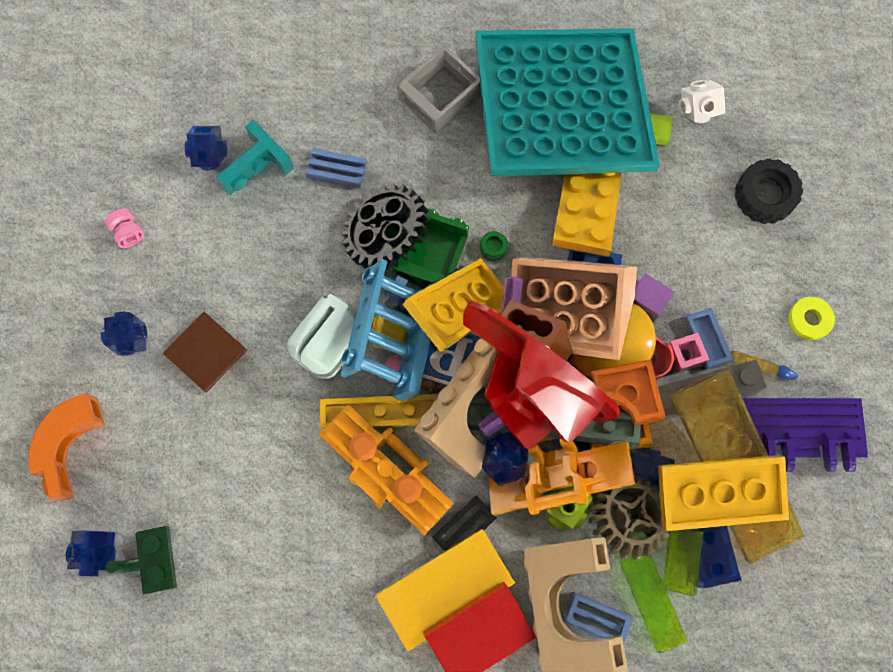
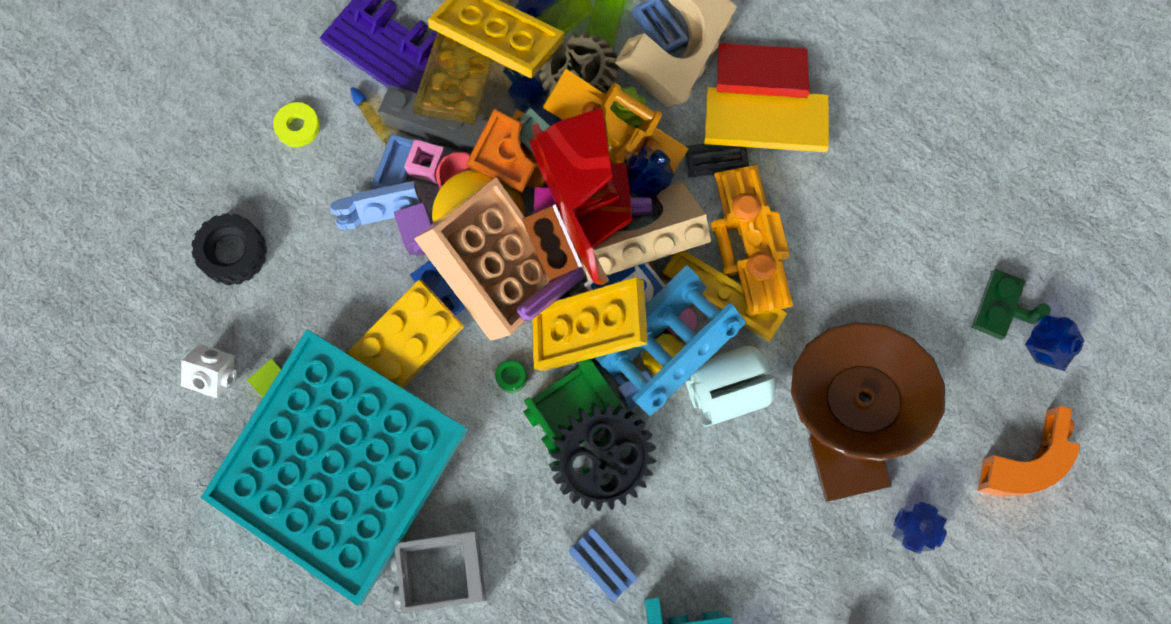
camera: 140 degrees left, 0 degrees up
(184, 396) = (873, 363): none -> reddish brown dish
(693, 295) = (374, 205): none -> light blue hinge

